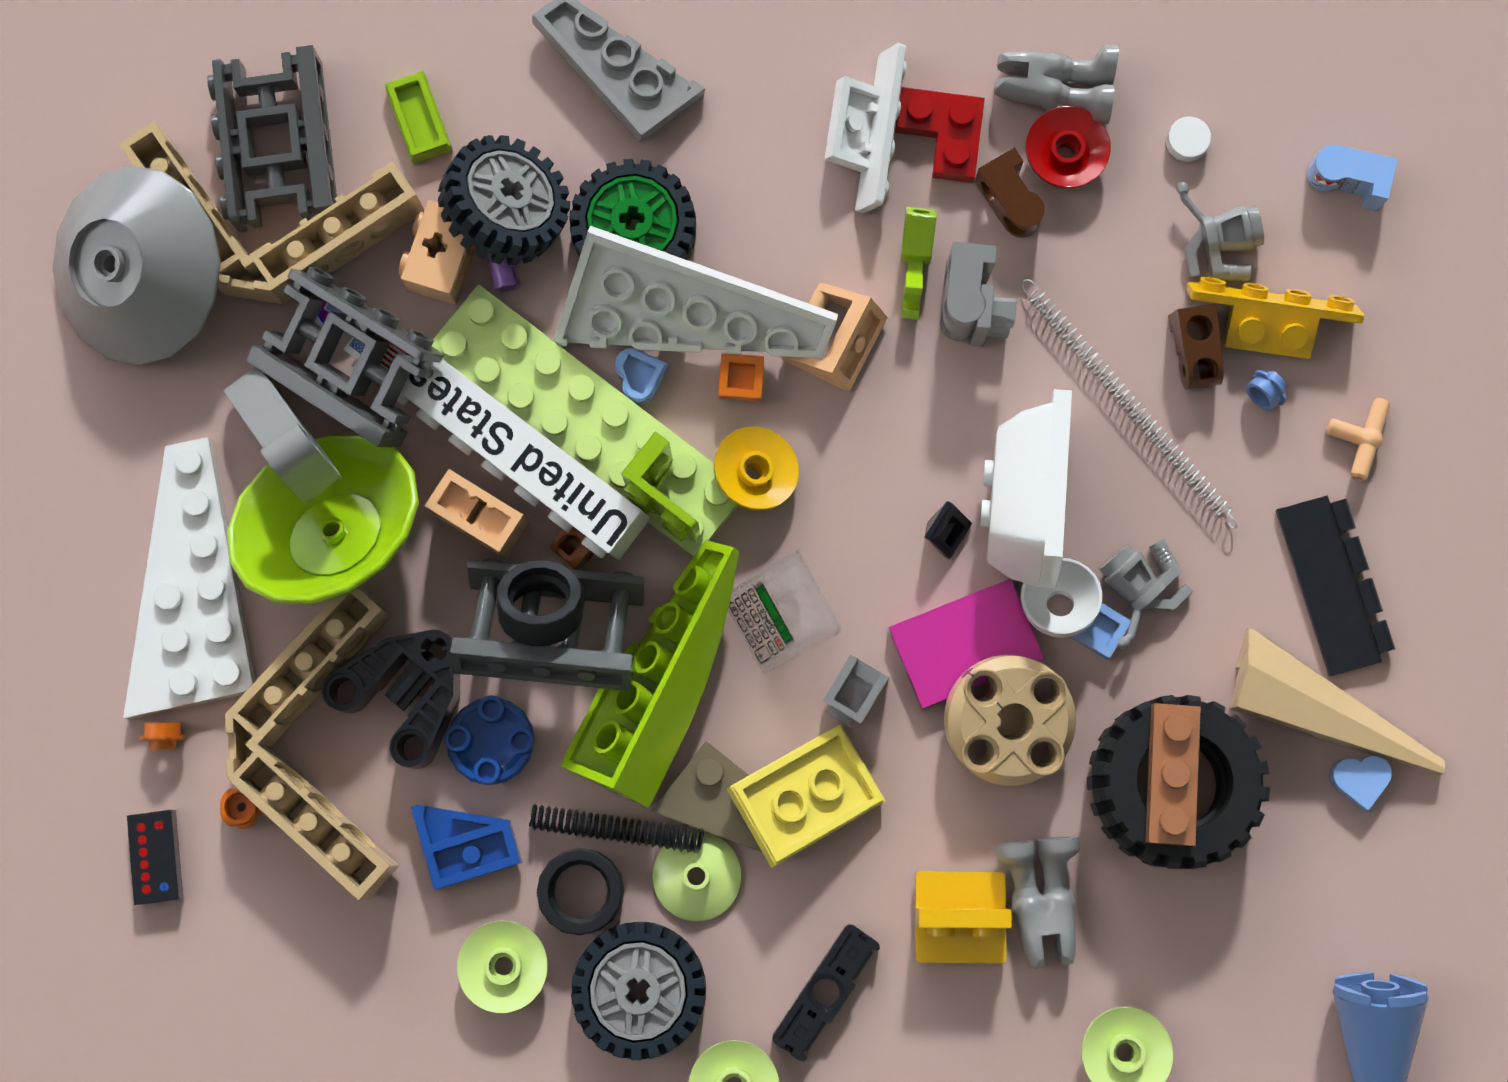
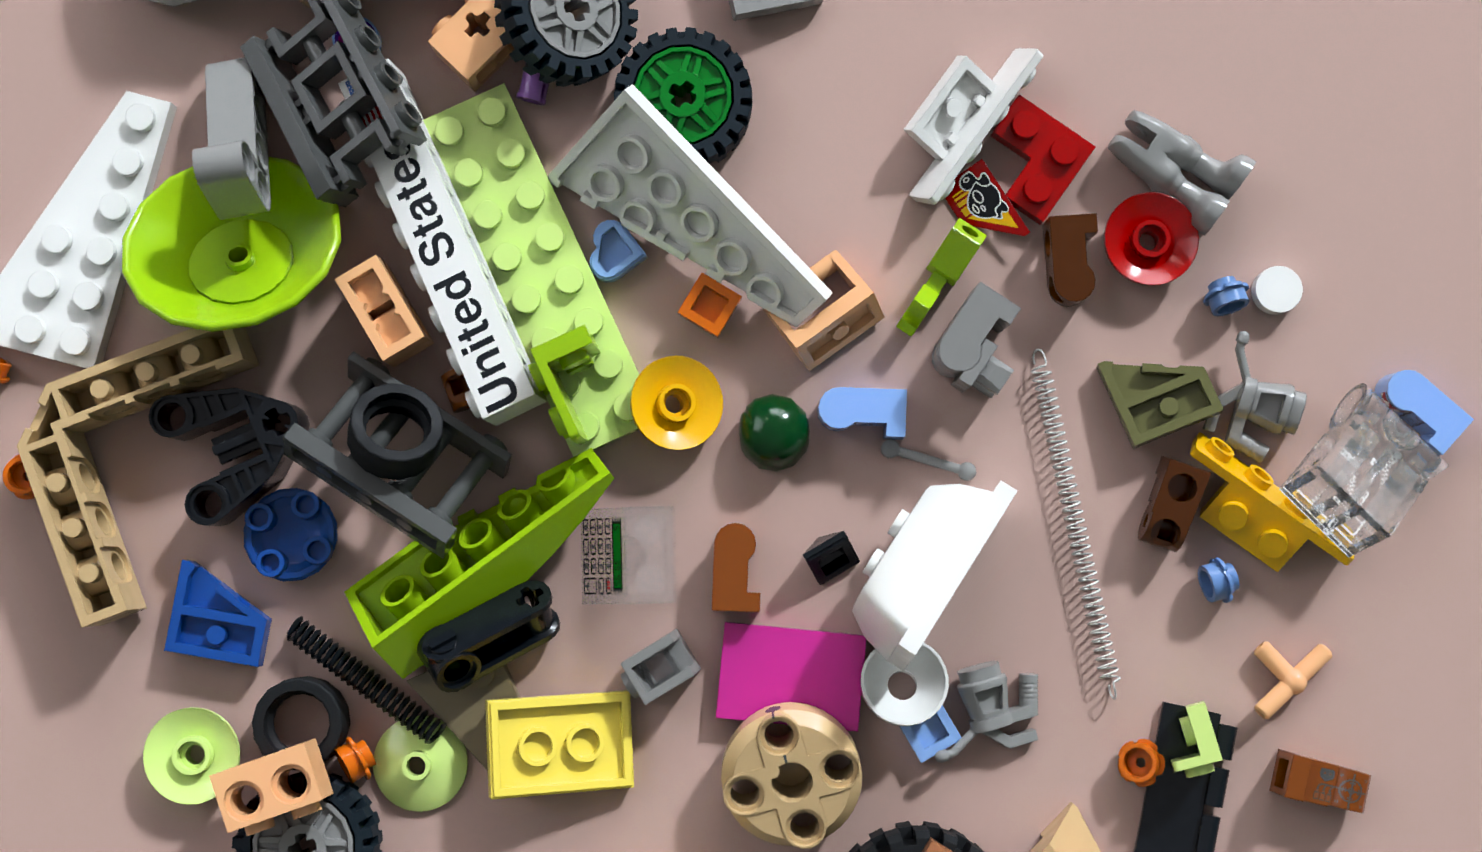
camera: 30 degrees right, 5 degrees up
(580, 940) = (270, 779): none -> light nougat brick
(641, 899) = (355, 759): none -> orange plate
(702, 734) = (488, 636): none -> black piece
(847, 454) = (774, 432): none -> dark green hair
(872, 583) = (732, 551): none -> dark orange leg
(911, 395) = (865, 407): none -> light blue leg
(918, 185) = (983, 203): none -> sticker
(949, 419) = (891, 448): none -> light grey hinge
(1141, 270) = (1158, 398): none -> olive wing
(1151, 163) = (1226, 296): none -> medium blue plate
(1274, 560) = (1128, 767): none -> orange plate
(1319, 514) = (1198, 730): none -> yellowish green bracket
(1333, 244) = (1362, 473): none -> clear piece
(1434, 507) = (1319, 782): none -> dark orange leg

